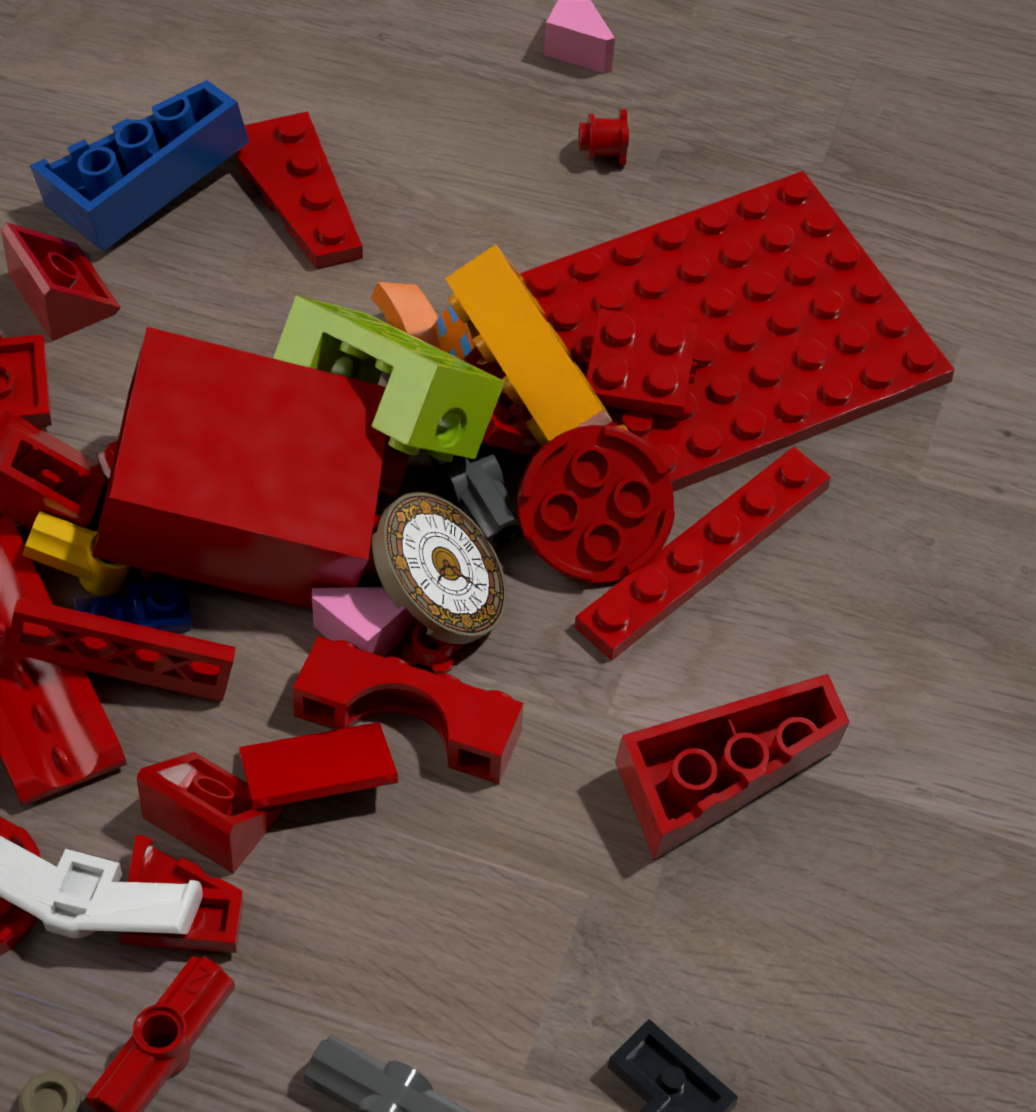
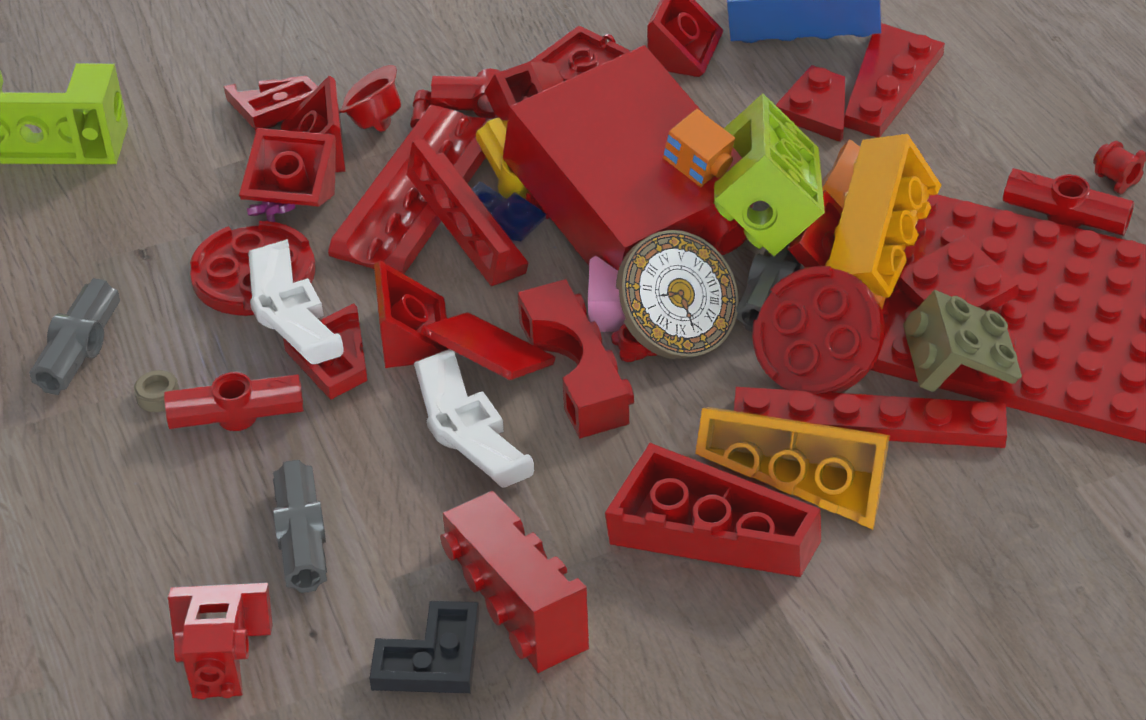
camera: 55 degrees right, 10 degrees down
(270, 262) = (817, 102): none -> red wing
(331, 401) = (699, 148): none -> orange brick
(400, 856) = (468, 422): none -> white plate
(612, 206) = (1068, 201): none -> red piece
(652, 965) = (519, 584): none -> red wedge
(715, 422) = (953, 333): none -> olive bracket
(721, 636) = (808, 460): none -> light orange wedge

